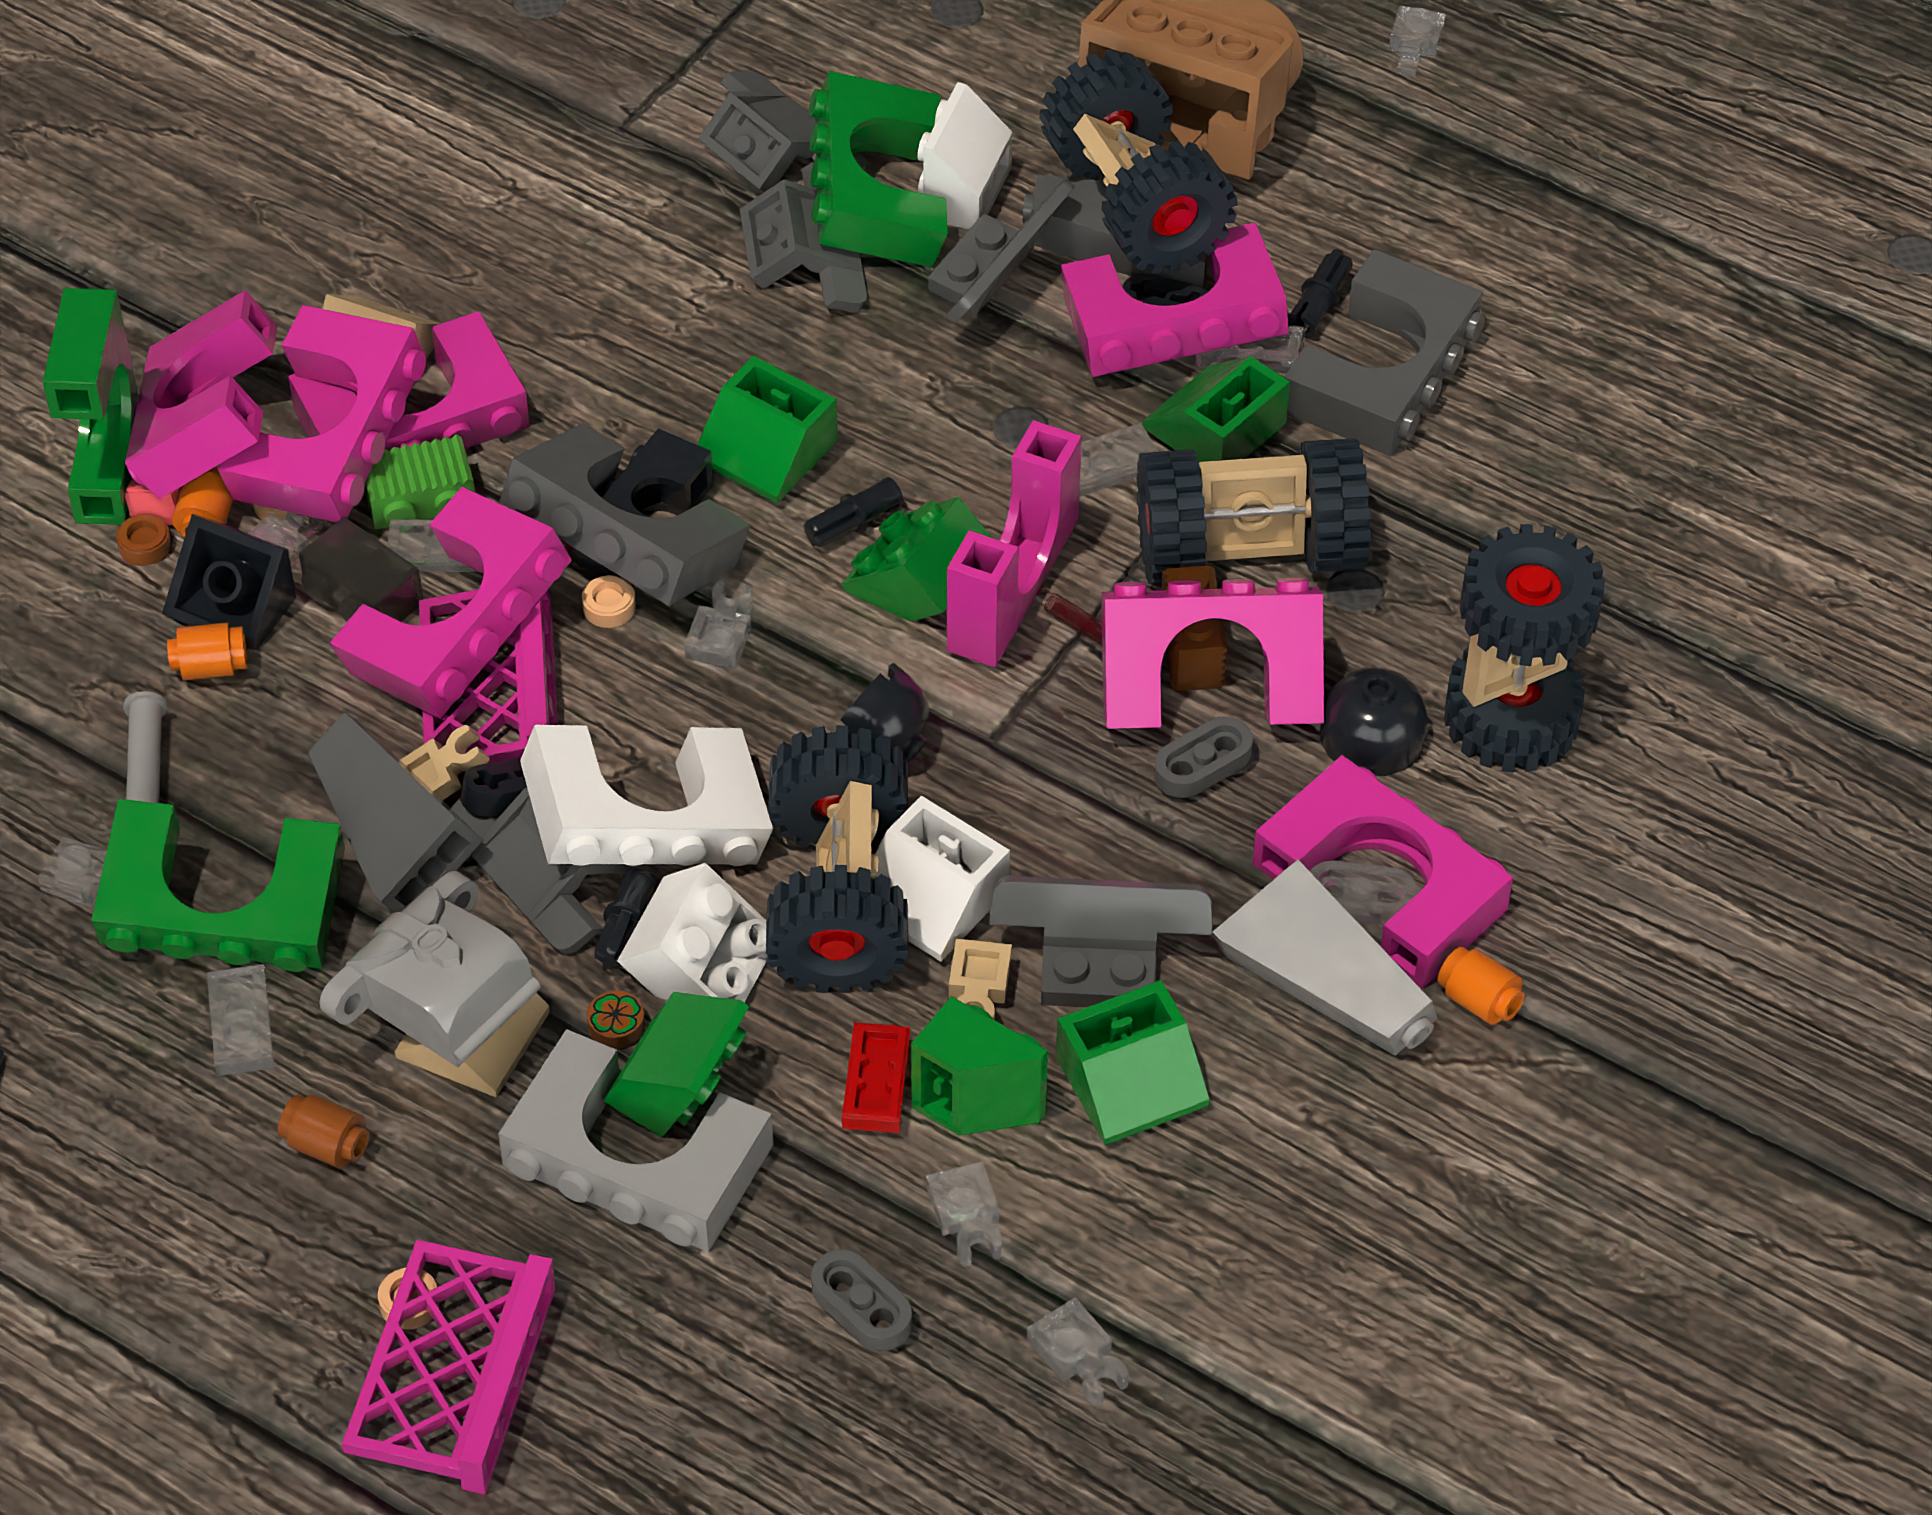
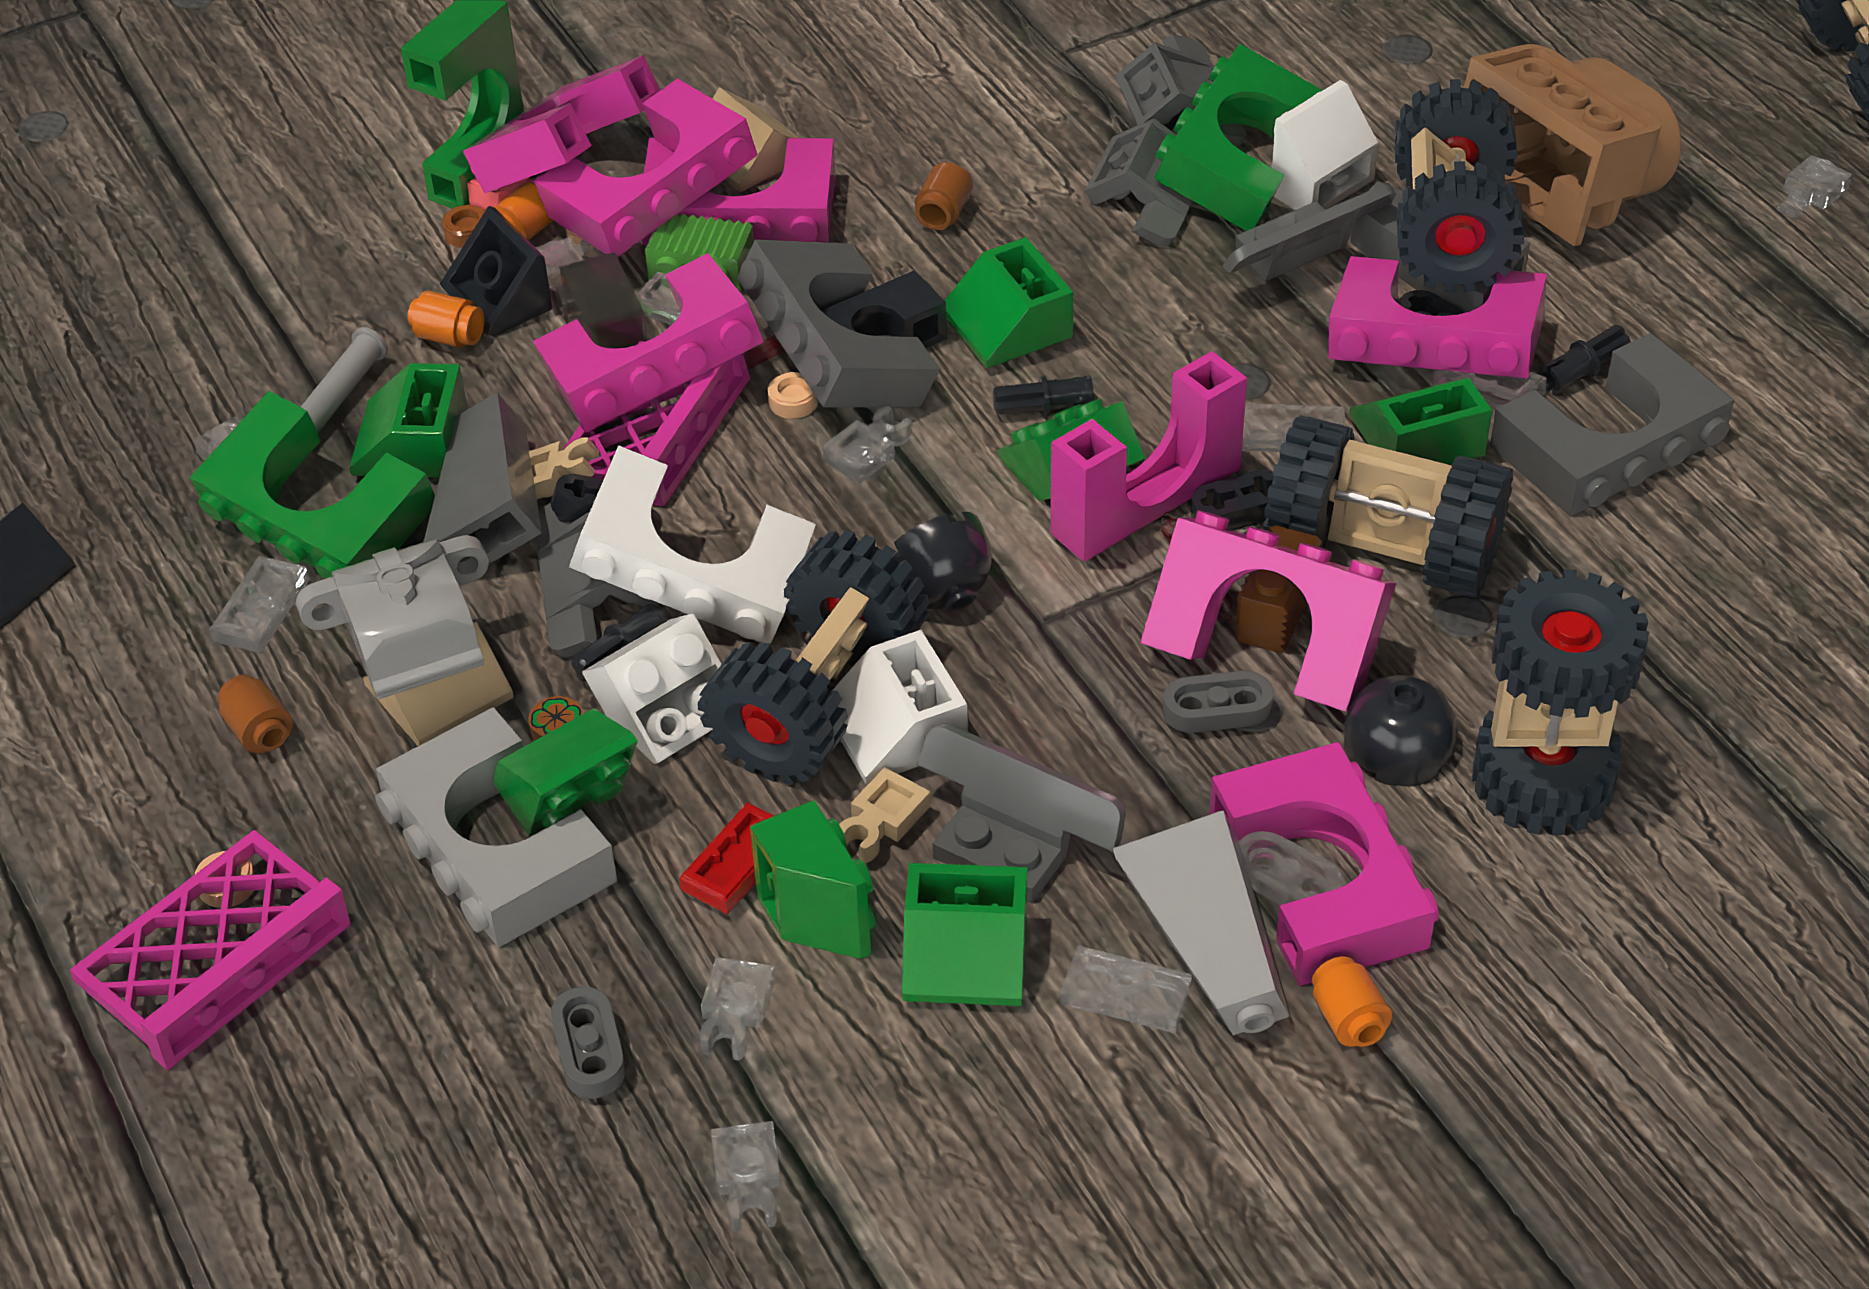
camera: 30 degrees right, 5 degrees down
(259, 775) = (411, 418): none -> green slope
(619, 334) = (943, 196): none -> dark orange brick
(1092, 548) = (1236, 498): none -> black beam
(1286, 1052) = (1126, 989): none -> clear plate

